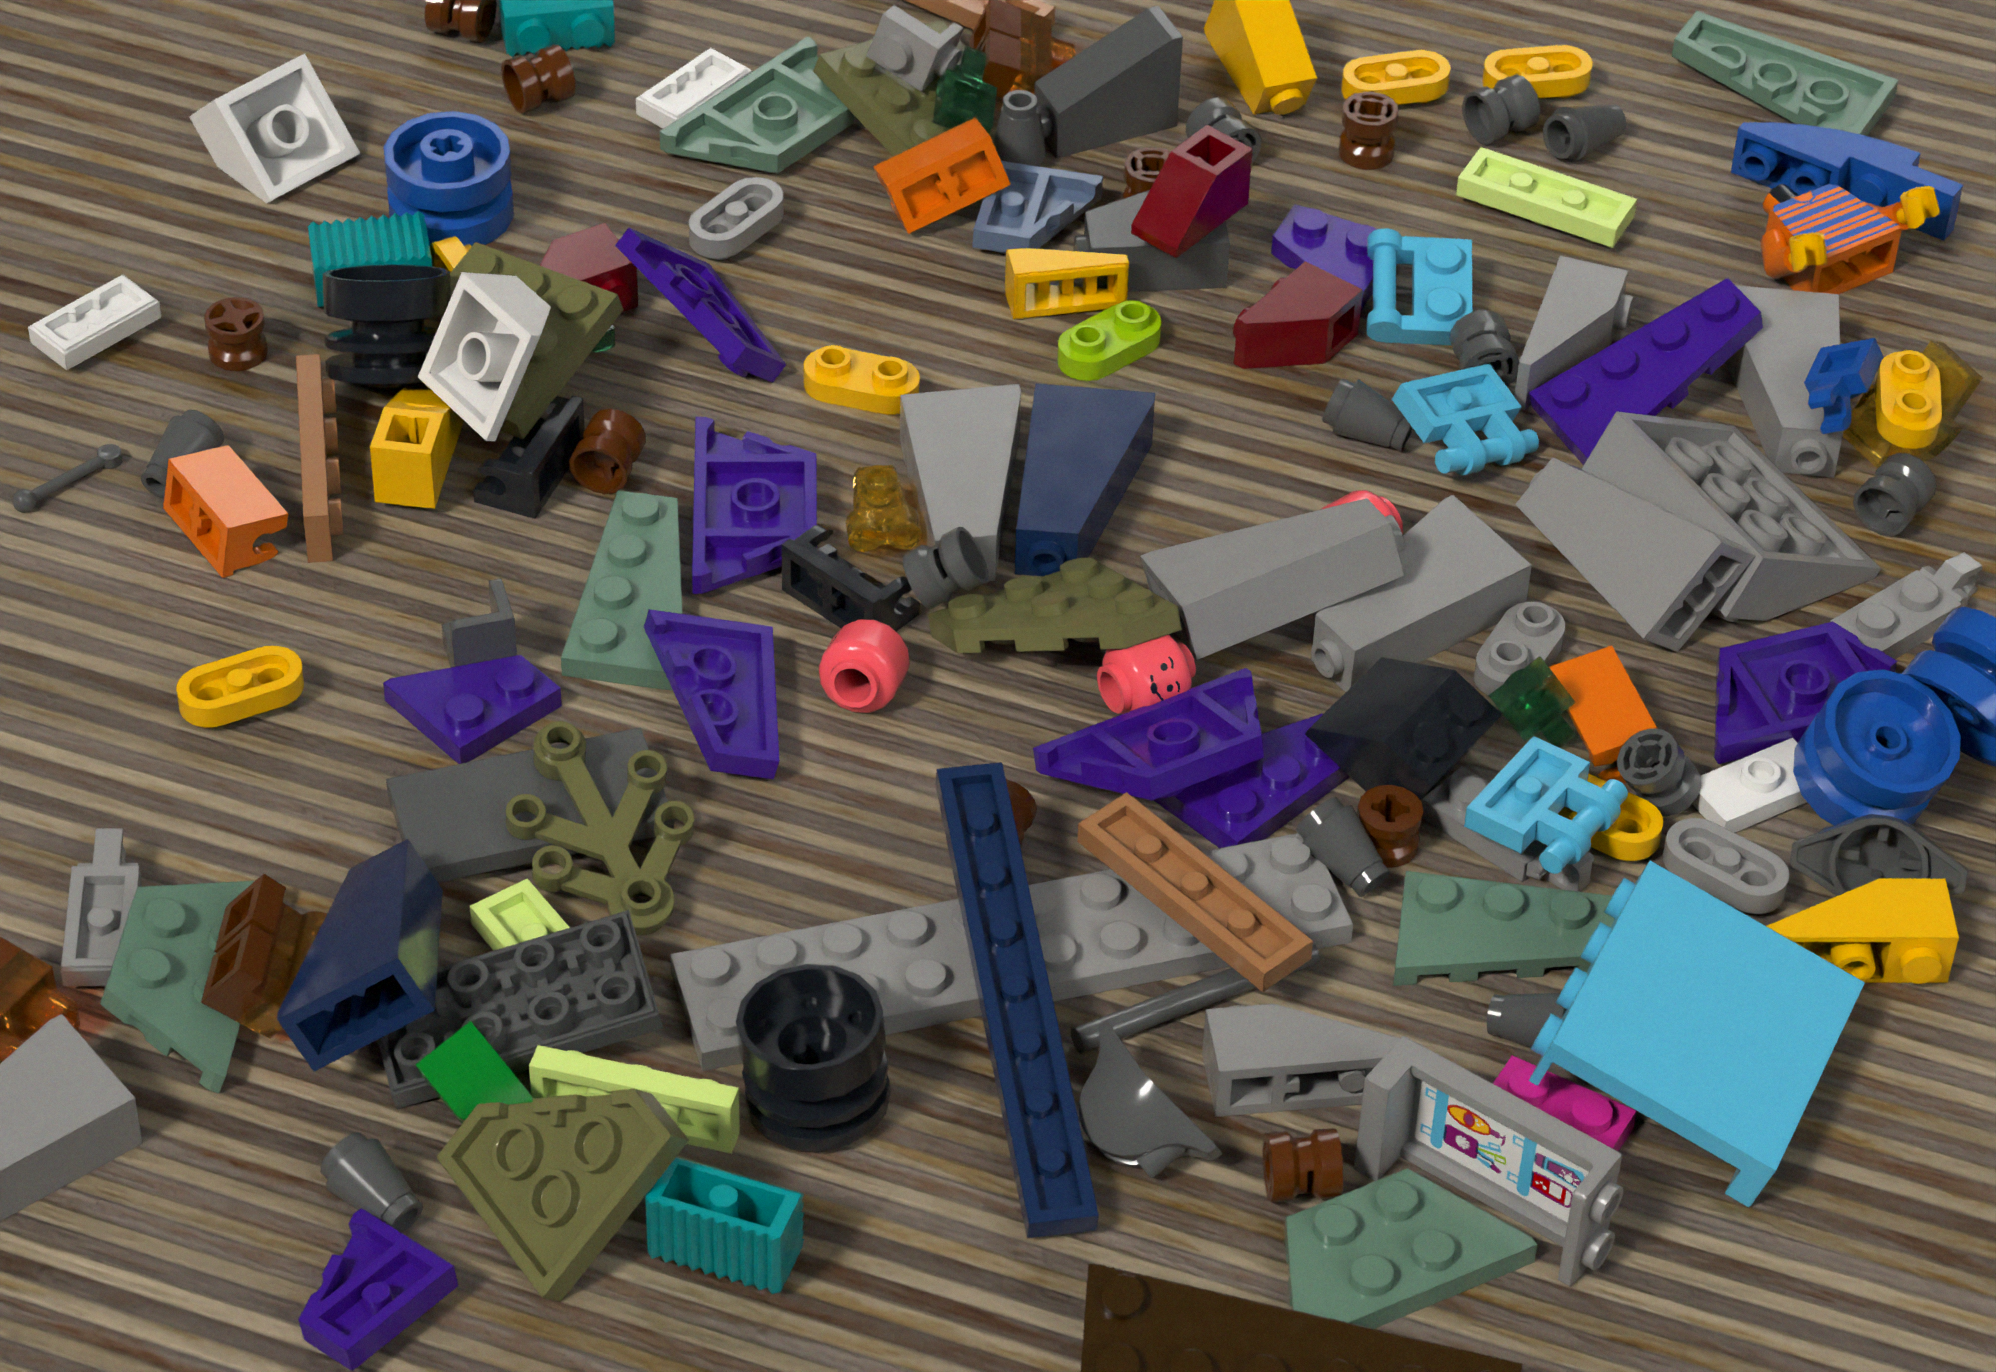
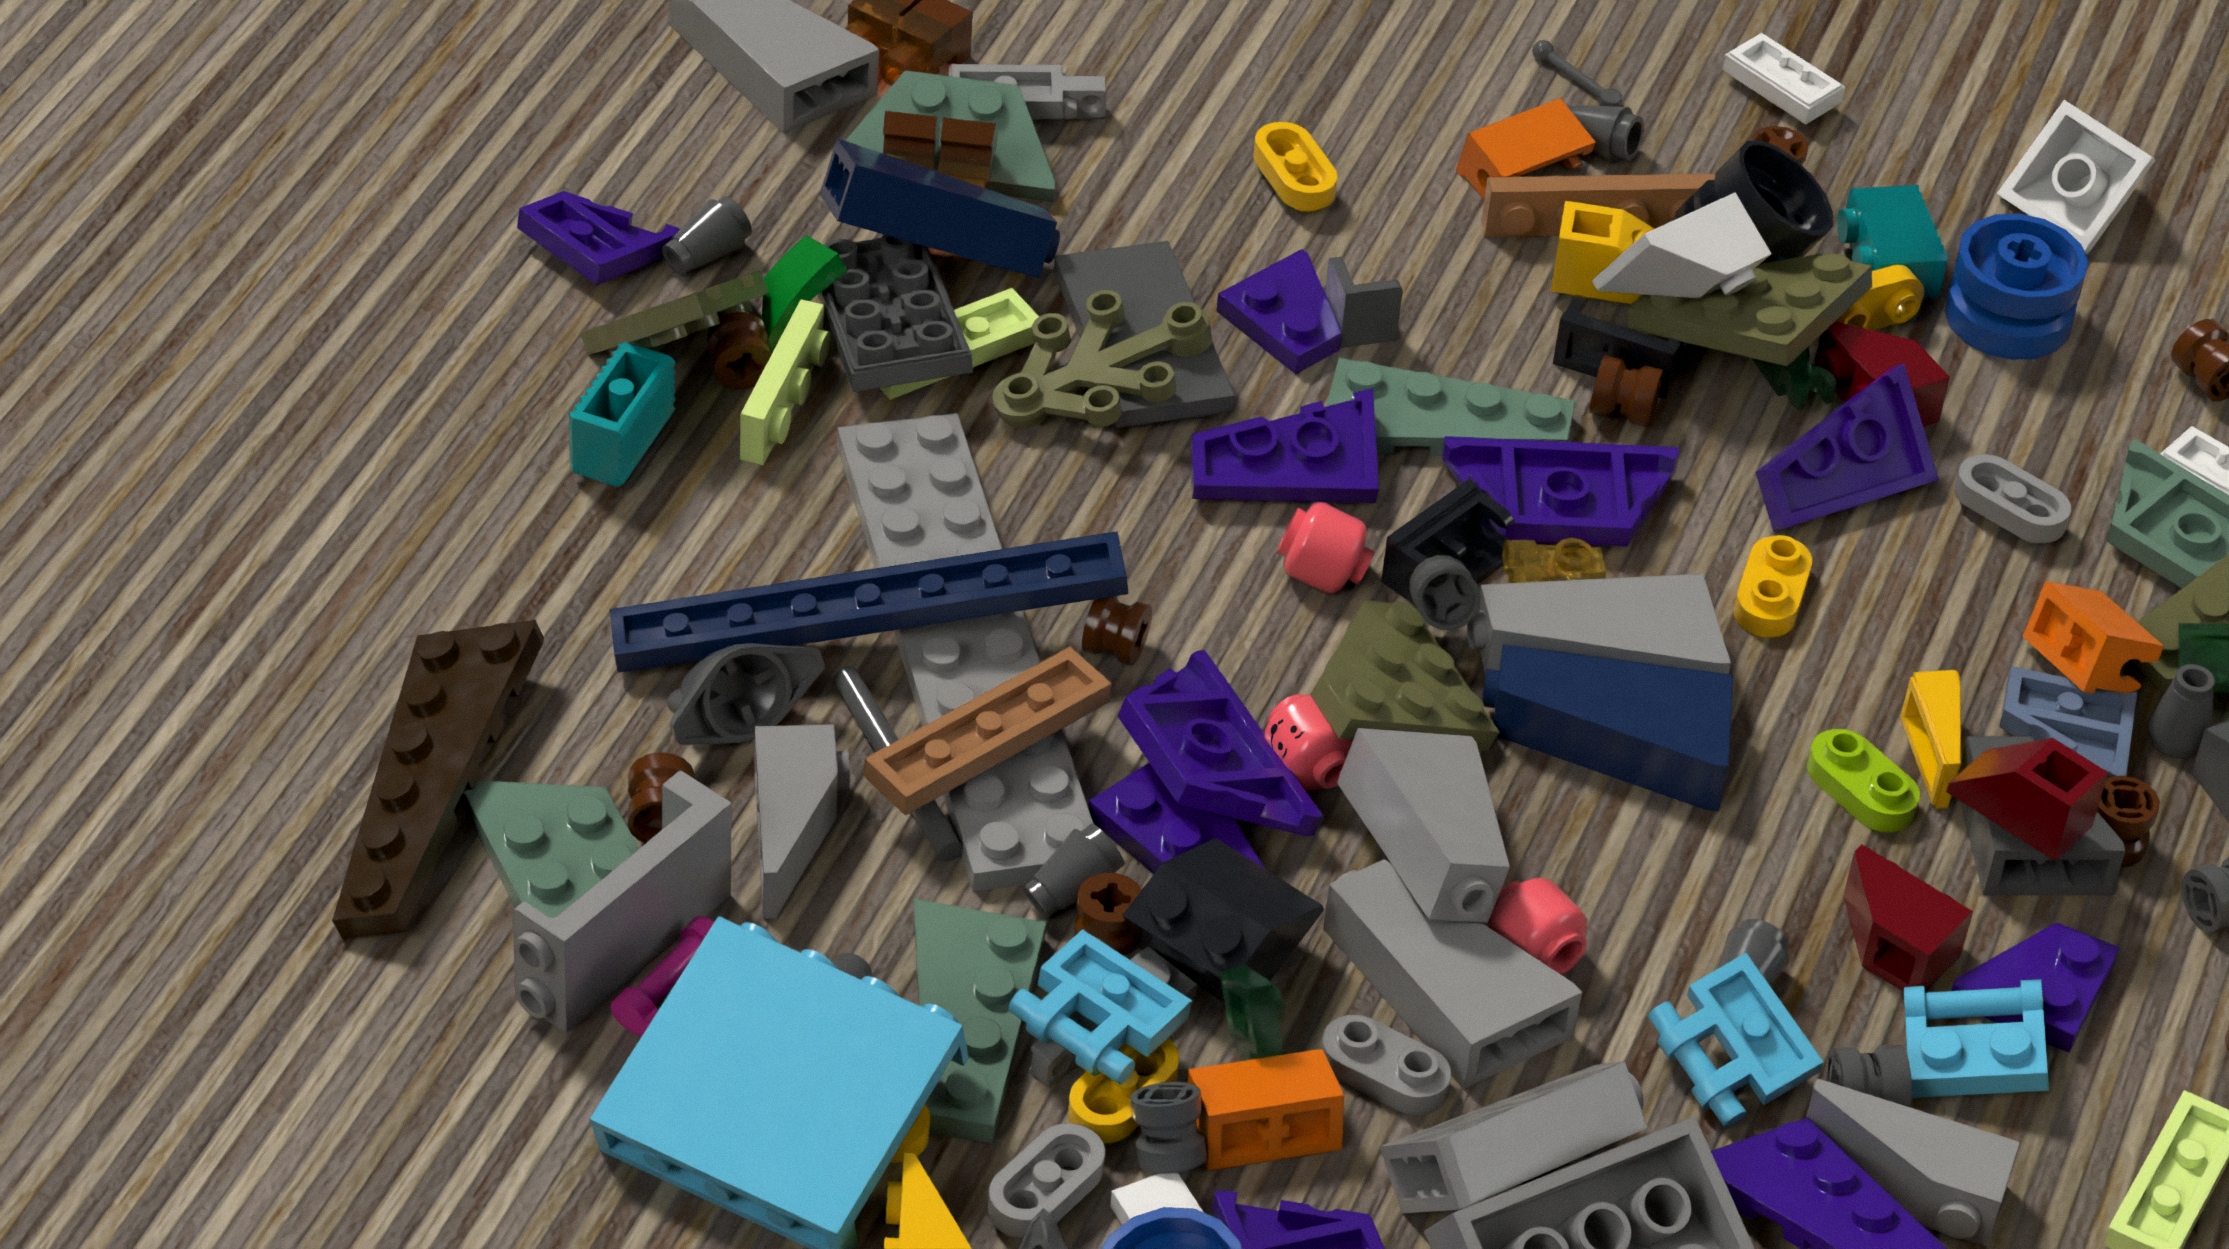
camera: 90 degrees right, 0 degrees up
(813, 1057) = (796, 467): black wheel -> none

